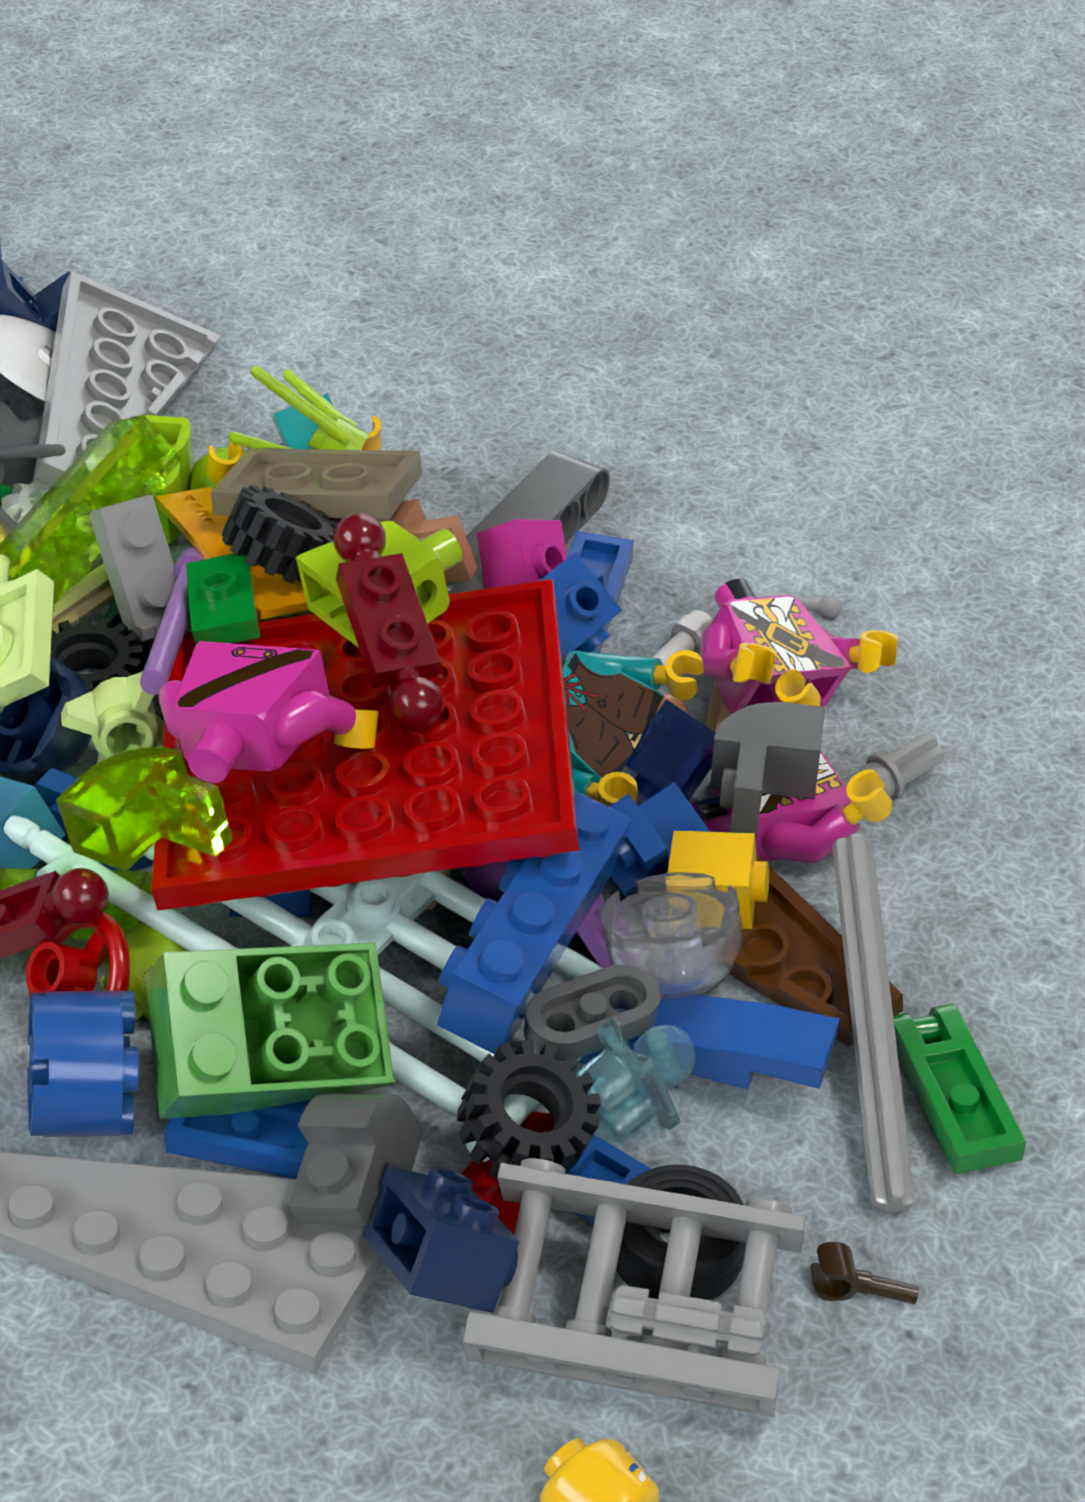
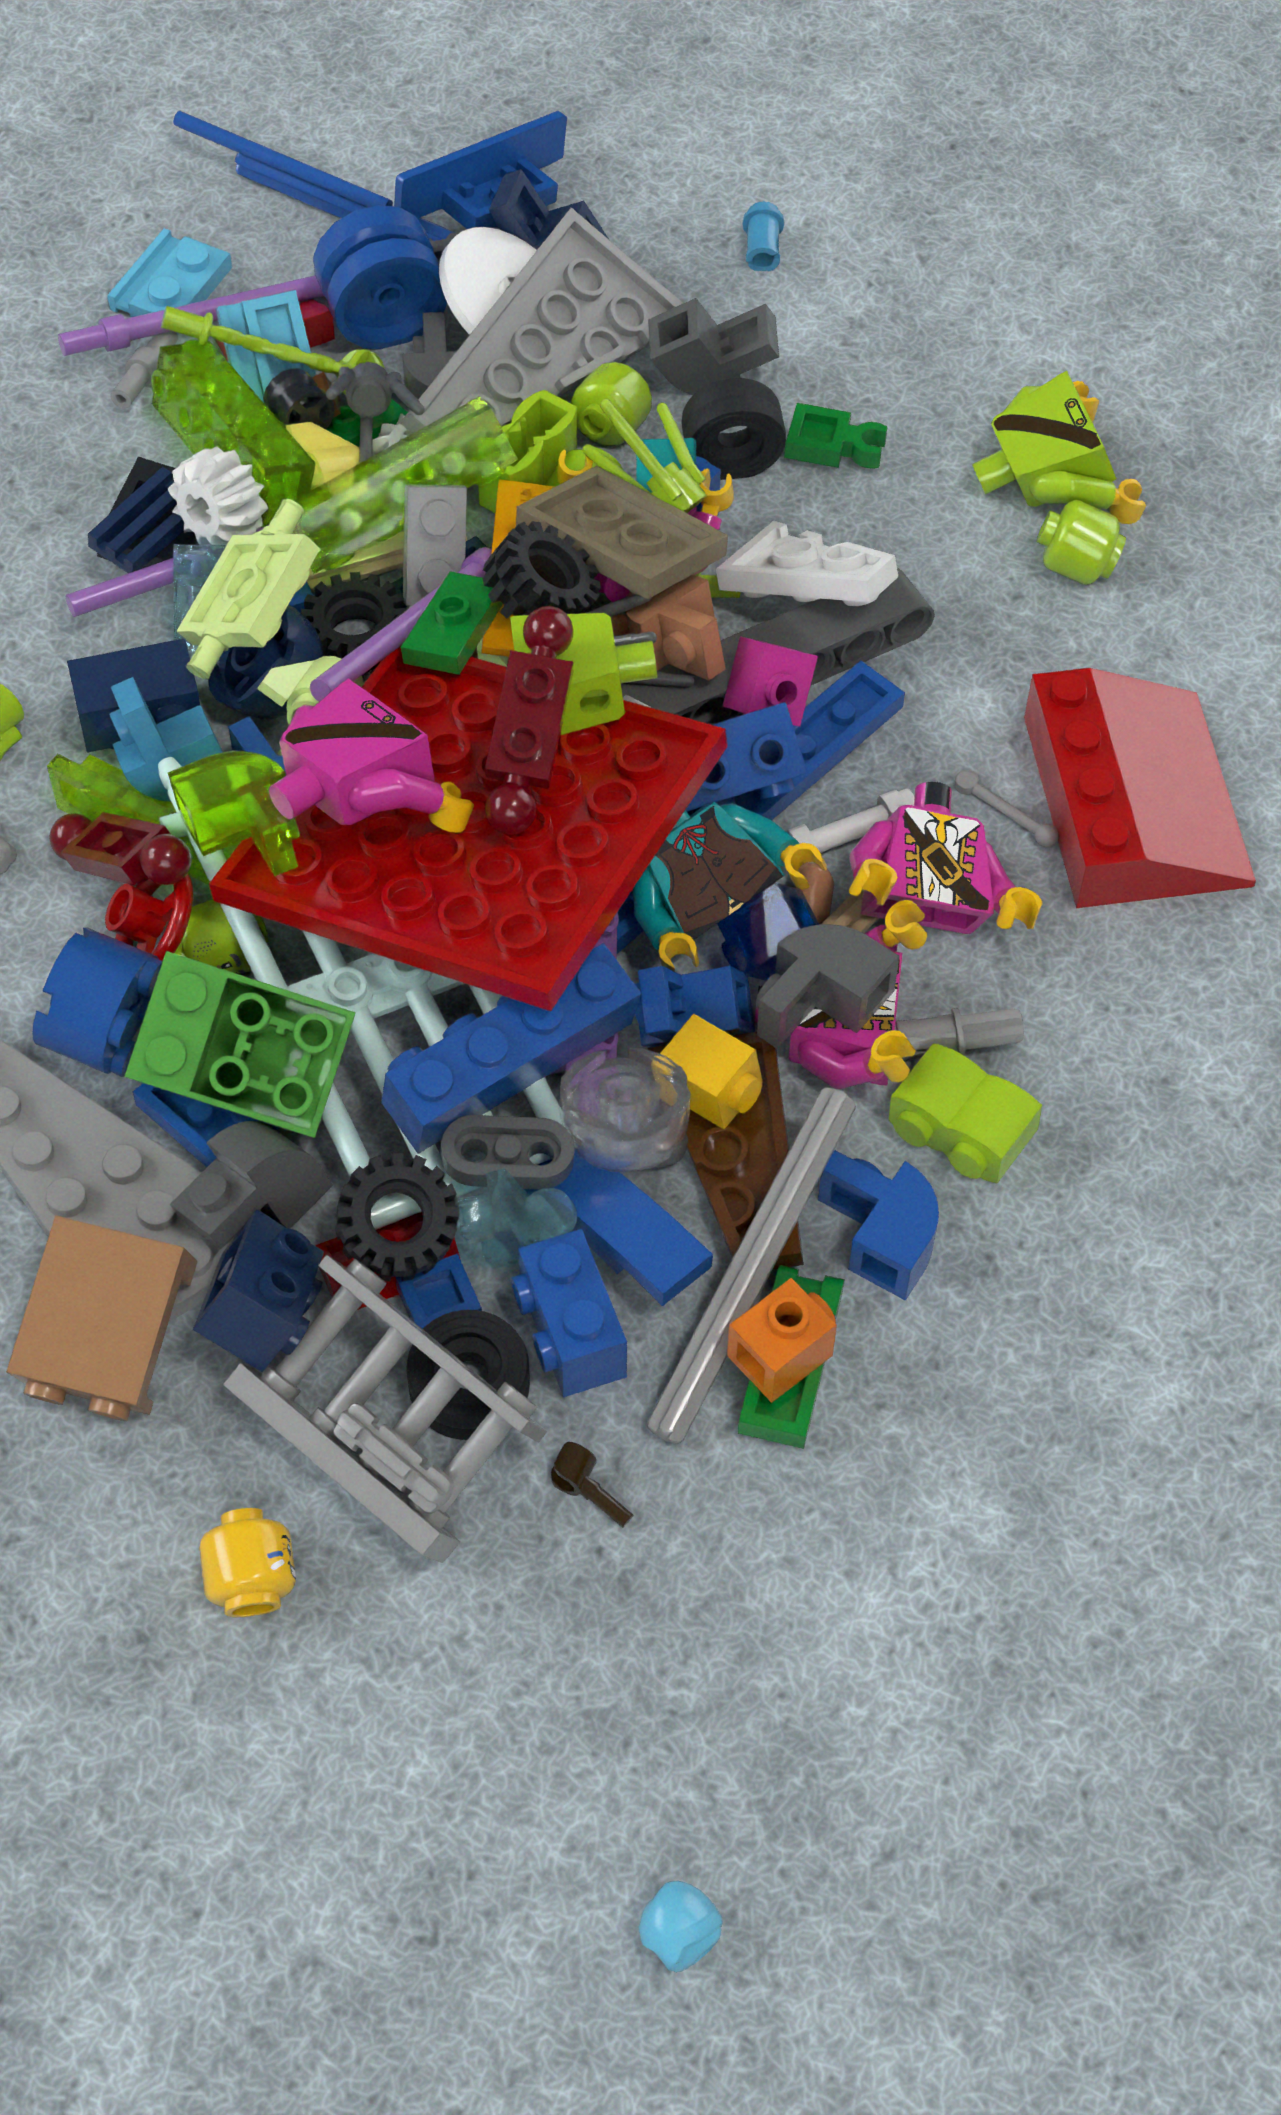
camera: 30 degrees right, 15 degrees up
(209, 411) = (626, 392): none -> lime head
(230, 254) = (763, 225): none -> dark azure pin
(275, 345) = (697, 351): none -> dark grey brick
(292, 1341) = (98, 1317): none -> medium nougat panel
(339, 366) = (735, 404): none -> black tyre
(411, 386) = (826, 435): none -> green plate
(491, 477) = (806, 568): none -> white wing
(619, 326) = (1057, 452): none -> lime torso
(689, 385) = (1081, 542): none -> lime head
(738, 1131) = (571, 1312): none -> blue brick
(869, 546) = (1133, 788): none -> red slope
(946, 833) = (964, 1113): none -> lime brick
(953, 1062) = (782, 1339): none -> orange brick
(960, 935) = (895, 1216): none -> blue brick

